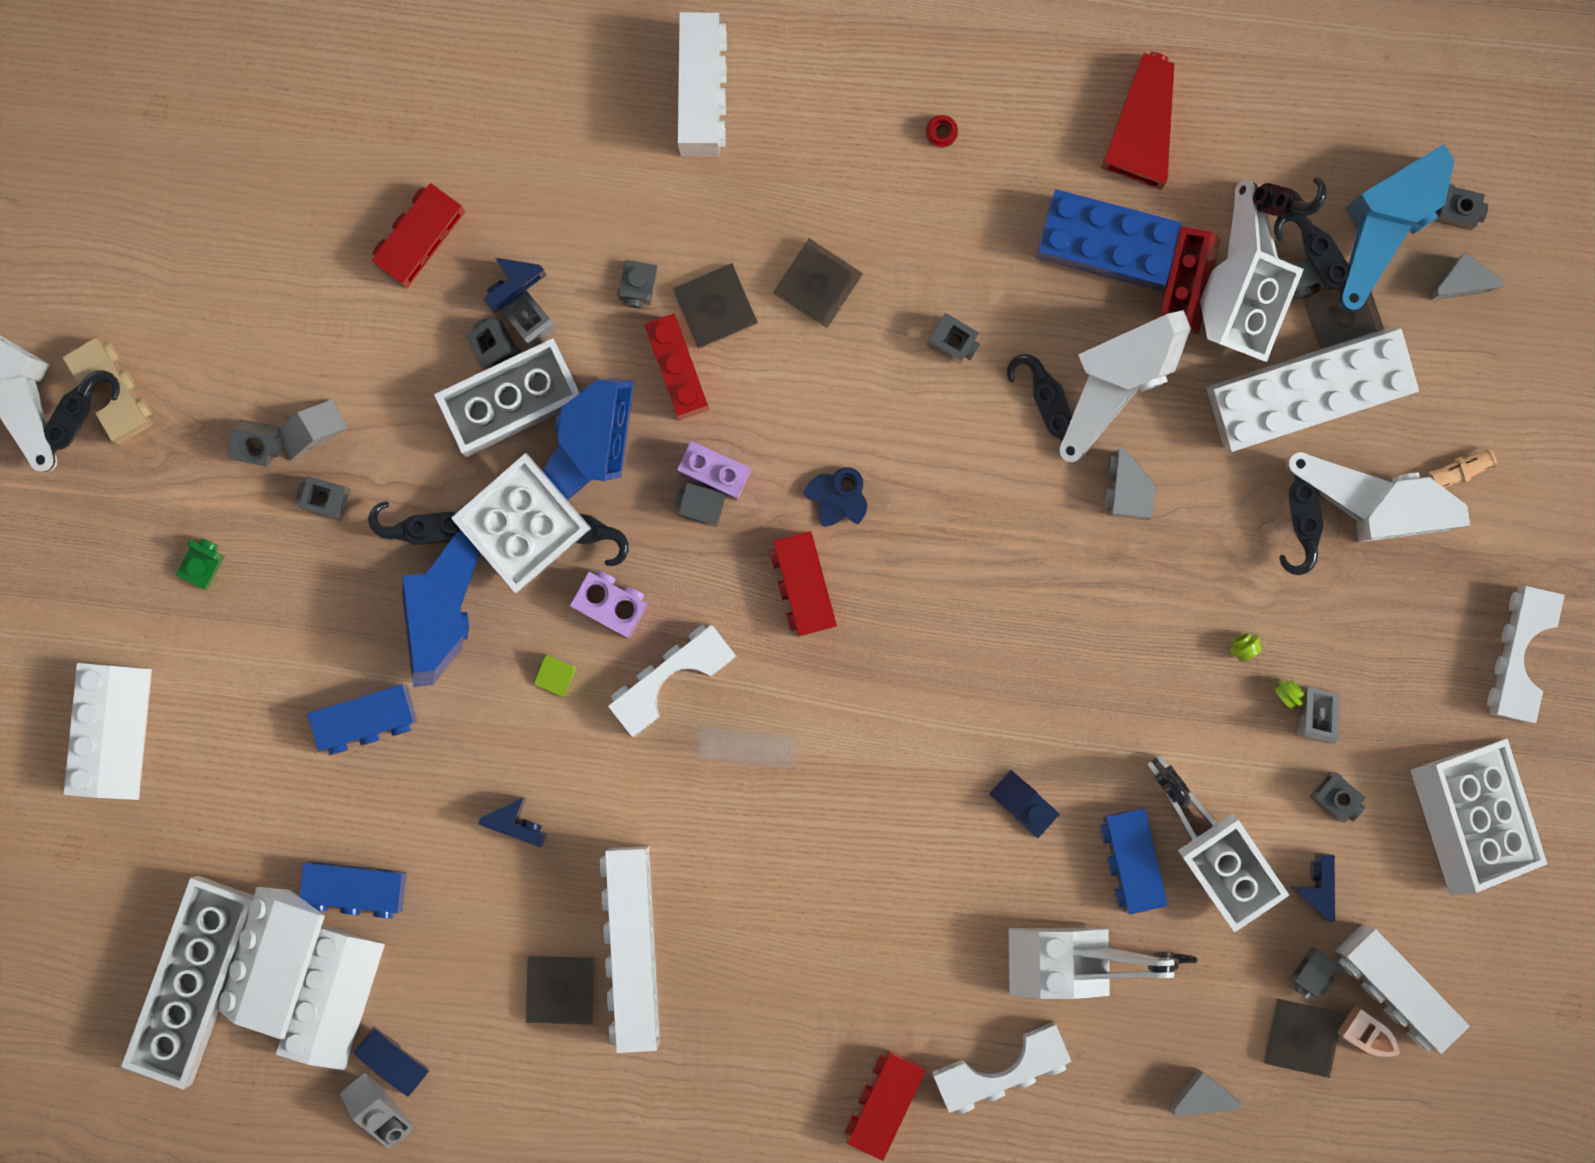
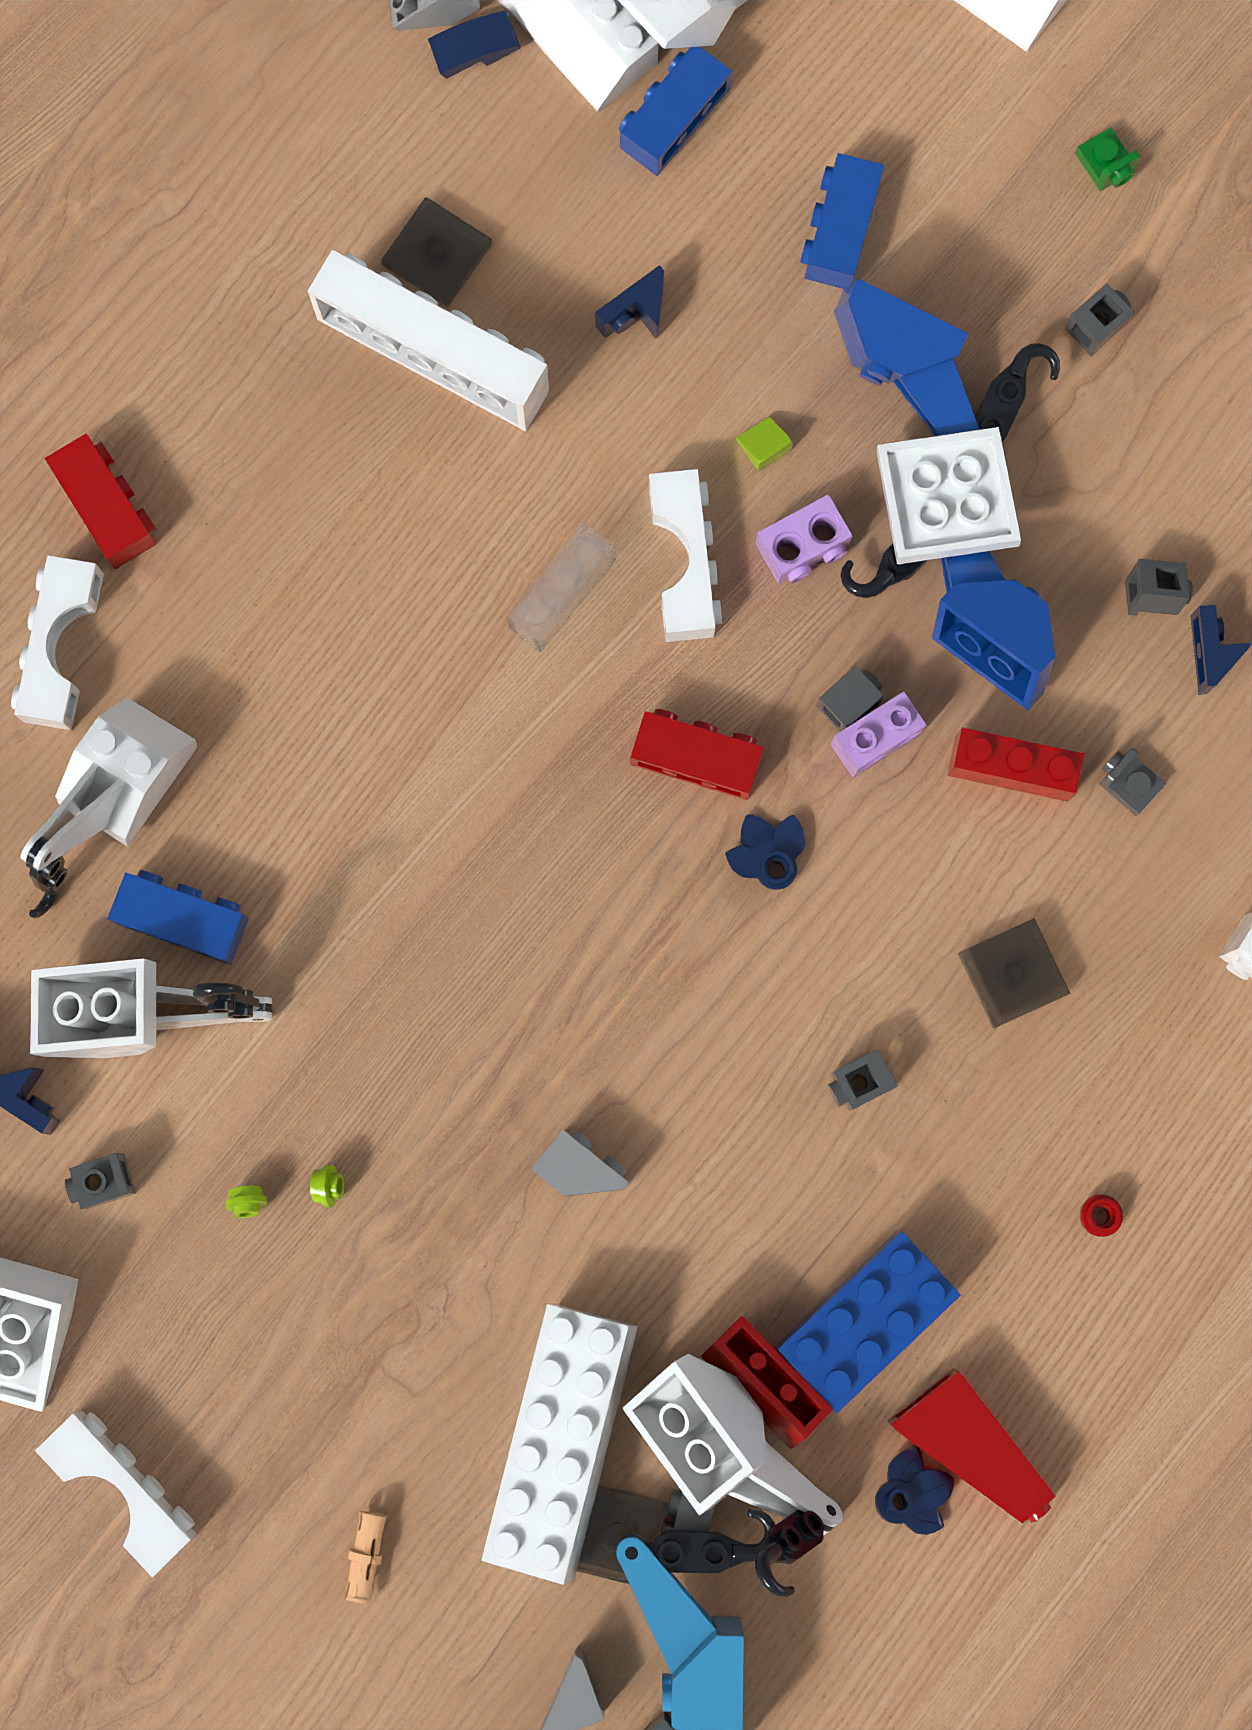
camera: 120 degrees right, 5 degrees down
(242, 449) = (1204, 268): dark grey brick -> none
(311, 428) = (1181, 353): light grey slope -> none
(507, 398) = (1091, 566): white brick -> none
(529, 319) = (1160, 642): light grey slope -> none
(715, 306) = (1056, 849): clear smoke plate -> none
(1024, 803) = (316, 841): dark blue slope -> none
(1116, 373) = (713, 1228): white slope -> none
(1193, 141) = (920, 1490): none -> dark blue plate
(1319, 716) = (200, 1217): light grey slope -> none
(1381, 507) = (380, 1431): white slope -> none

